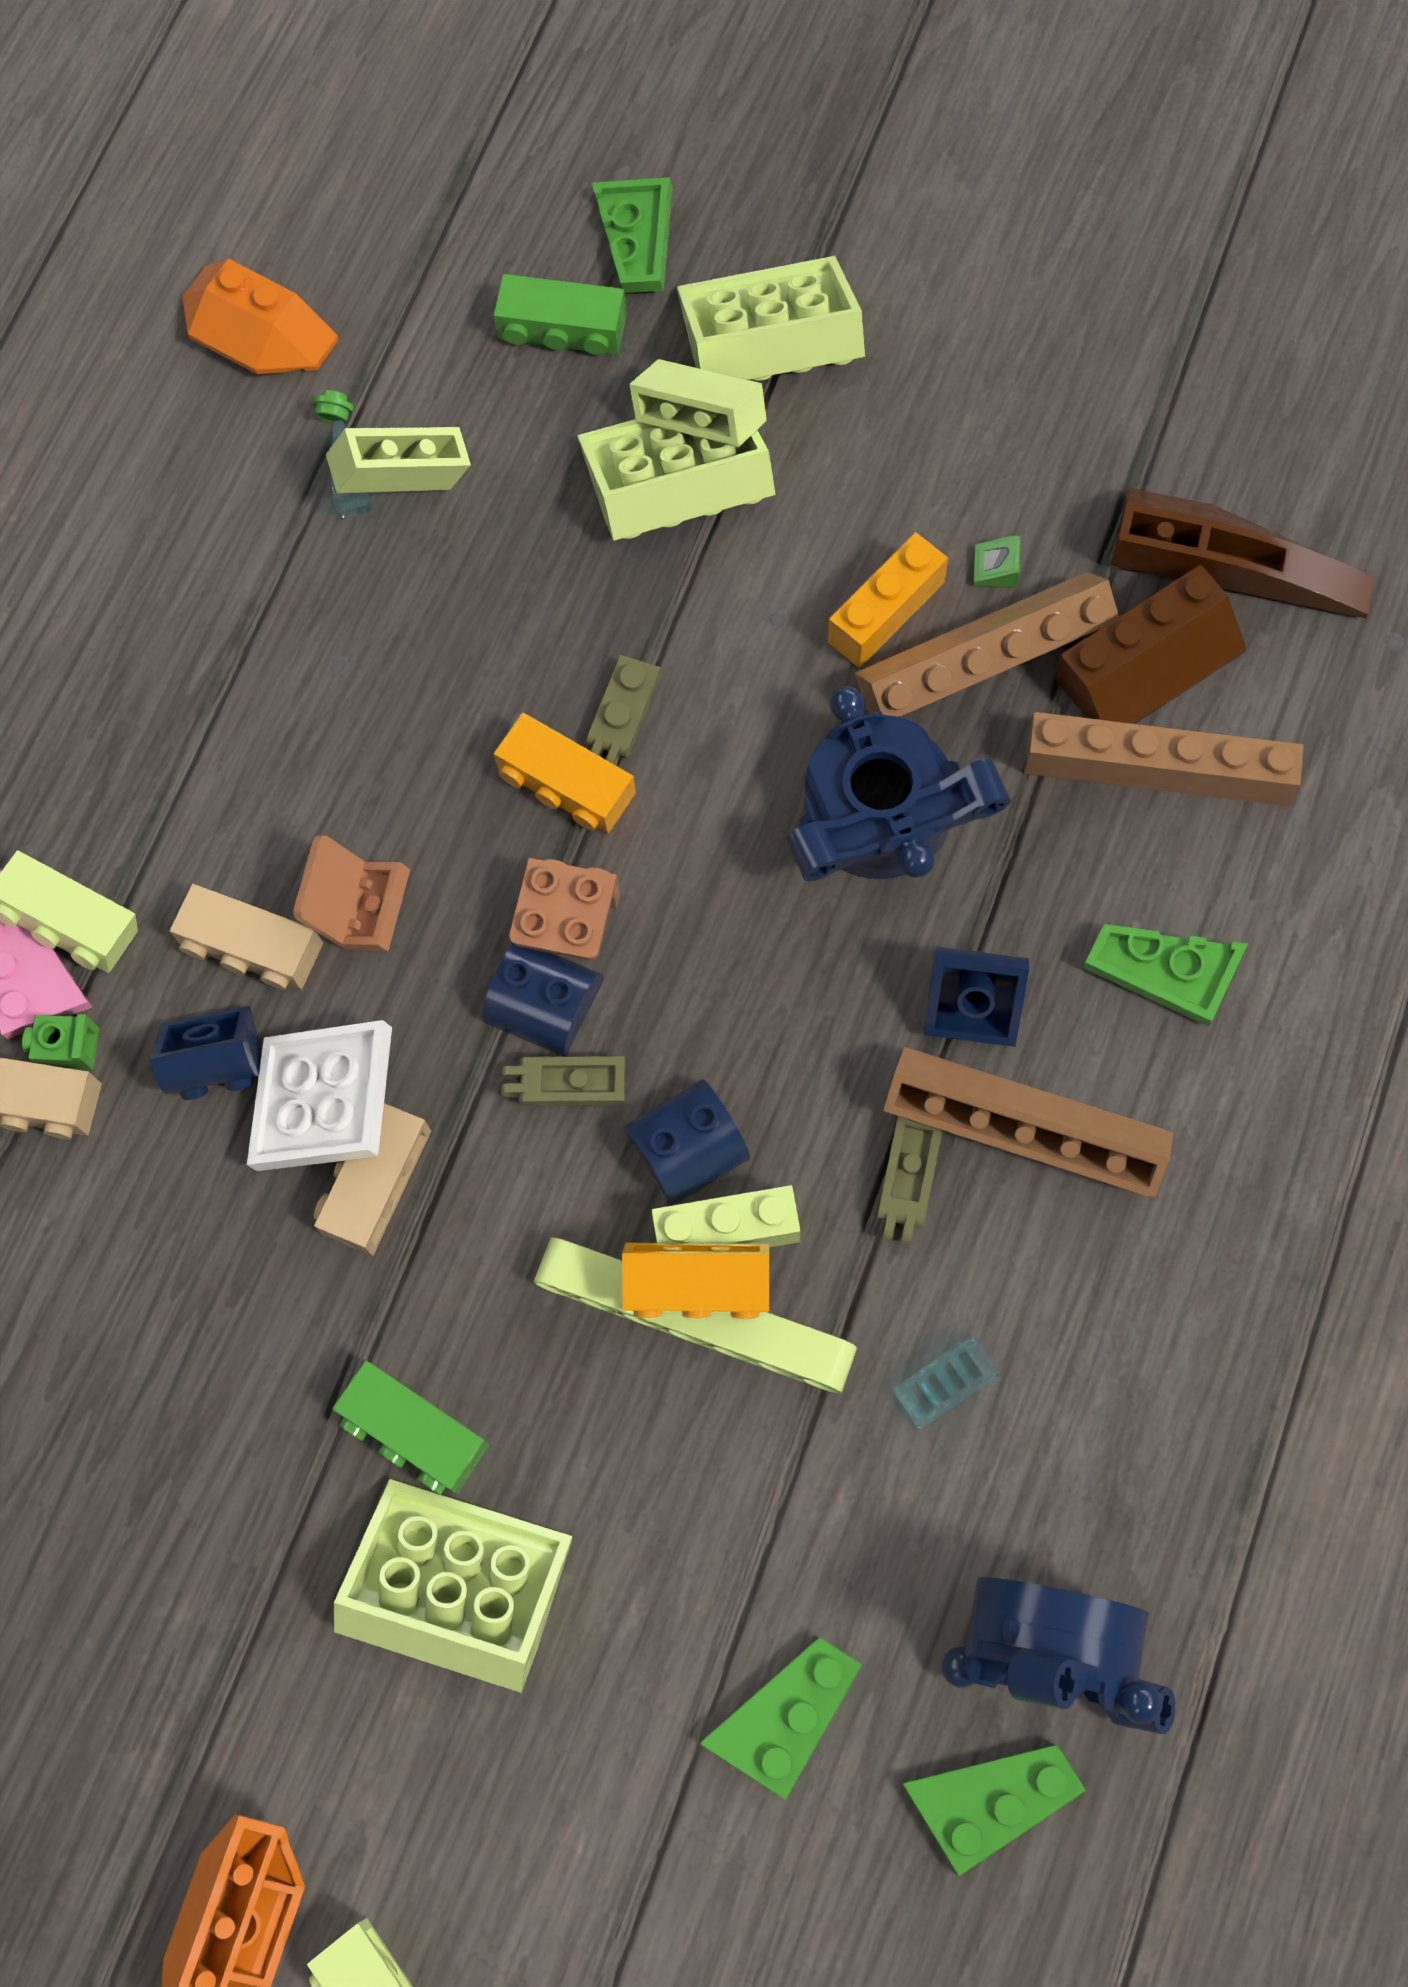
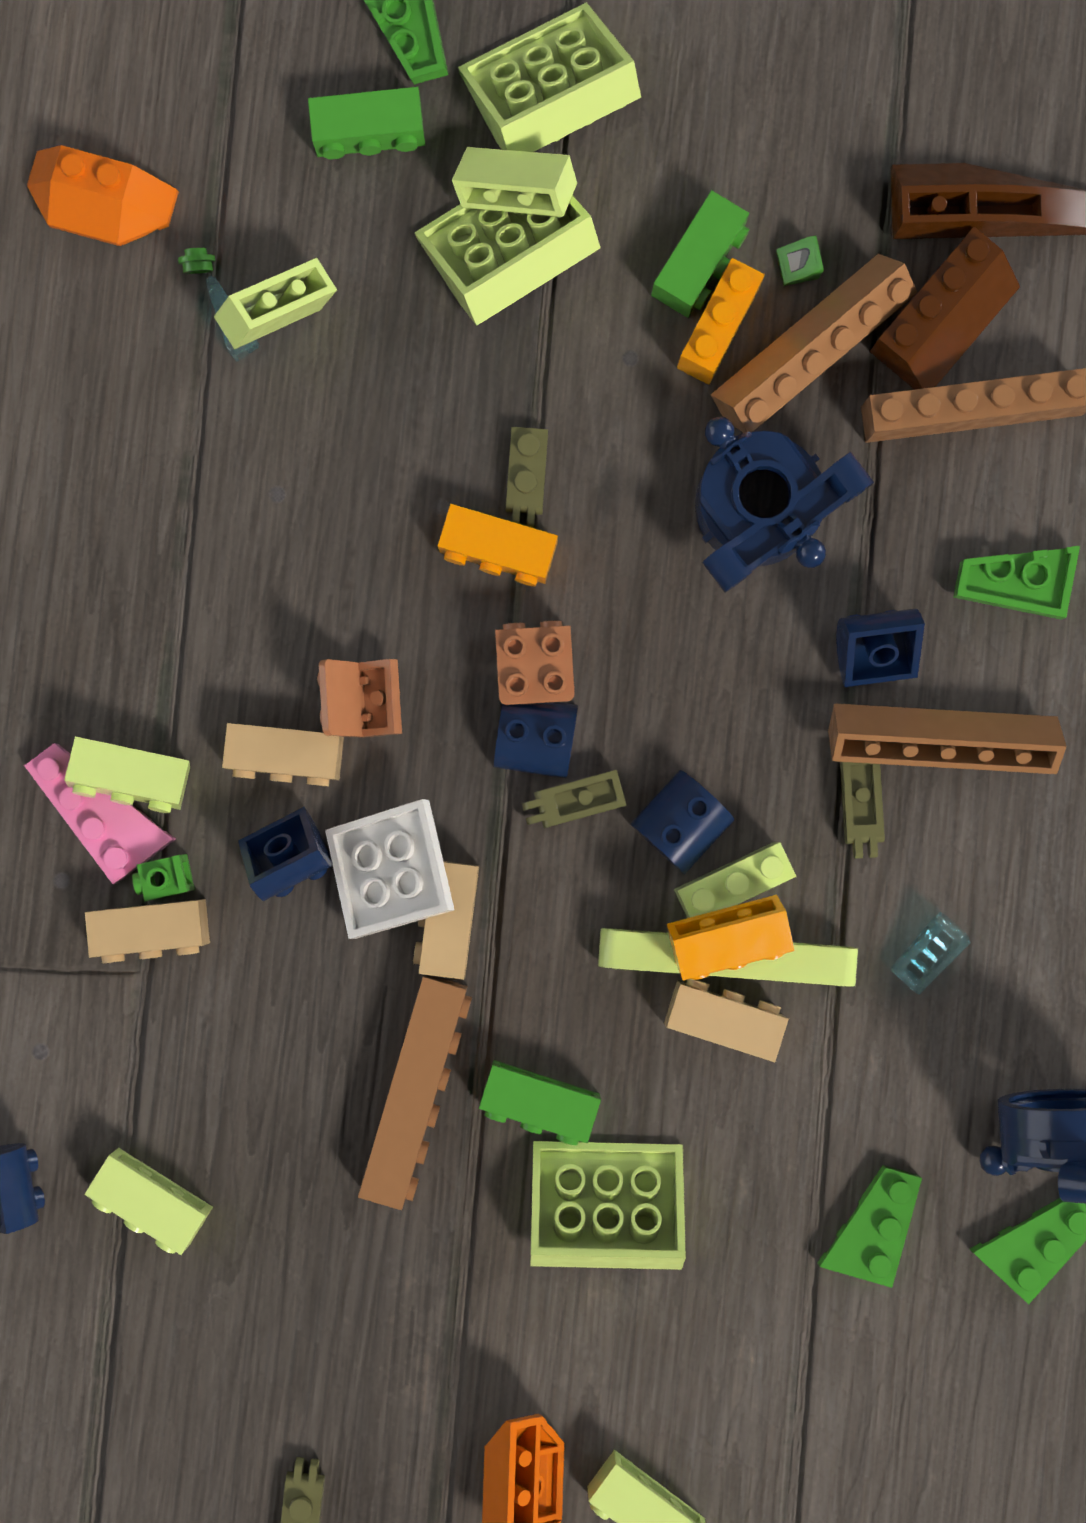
camera: 25 degrees left, 15 degrees up
(263, 1373) = (413, 1092): none -> medium nougat brick
(669, 1389) = (726, 1019): none -> tan brick
(883, 524) = (701, 255): none -> bright green brick

